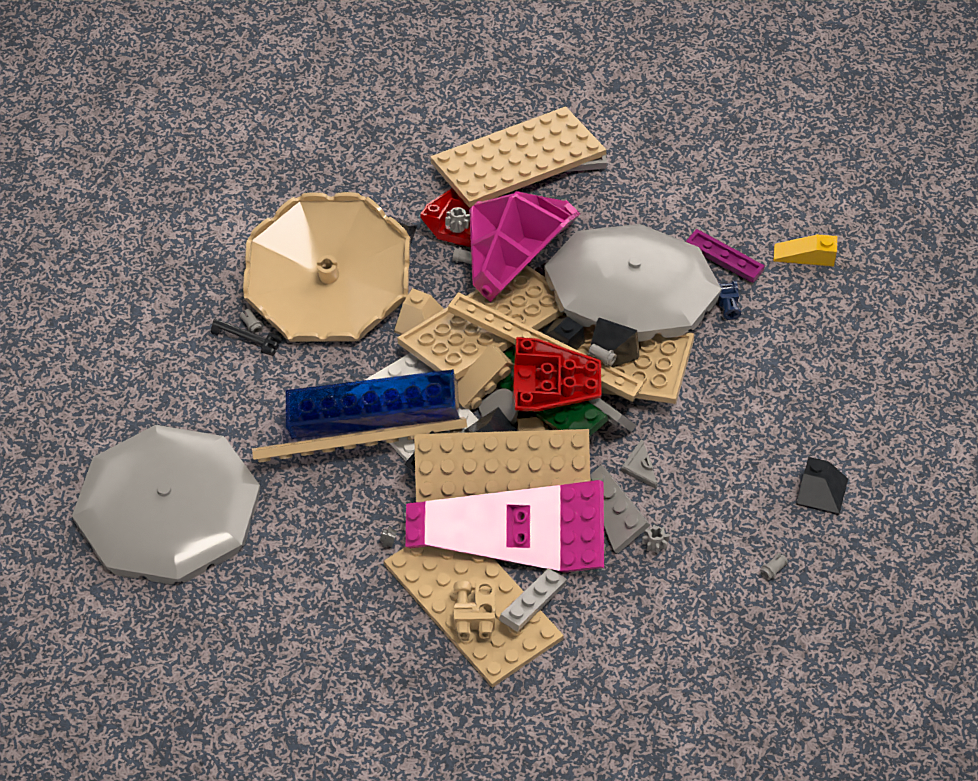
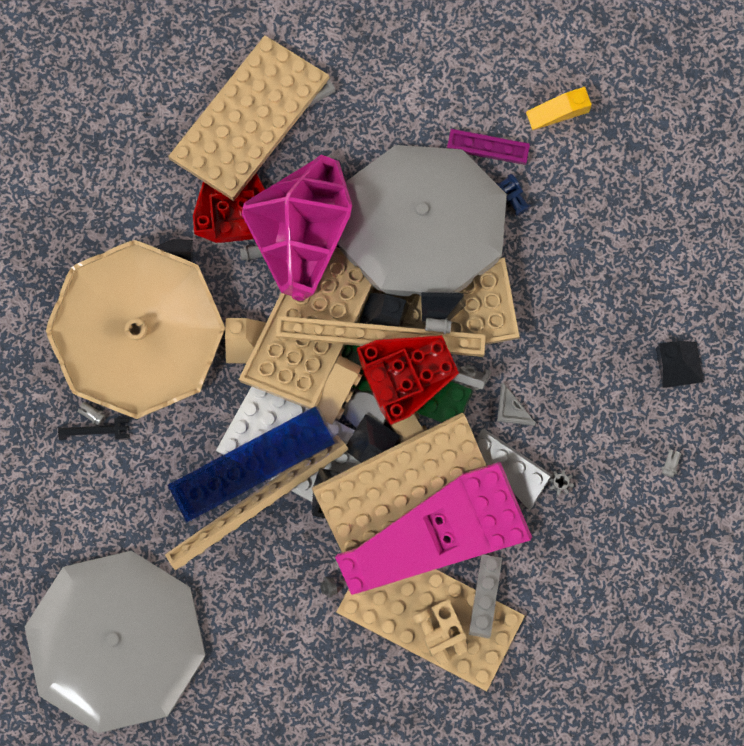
camera: 25 degrees left, 25 degrees up
(457, 220) = (232, 227): light grey gear -> none

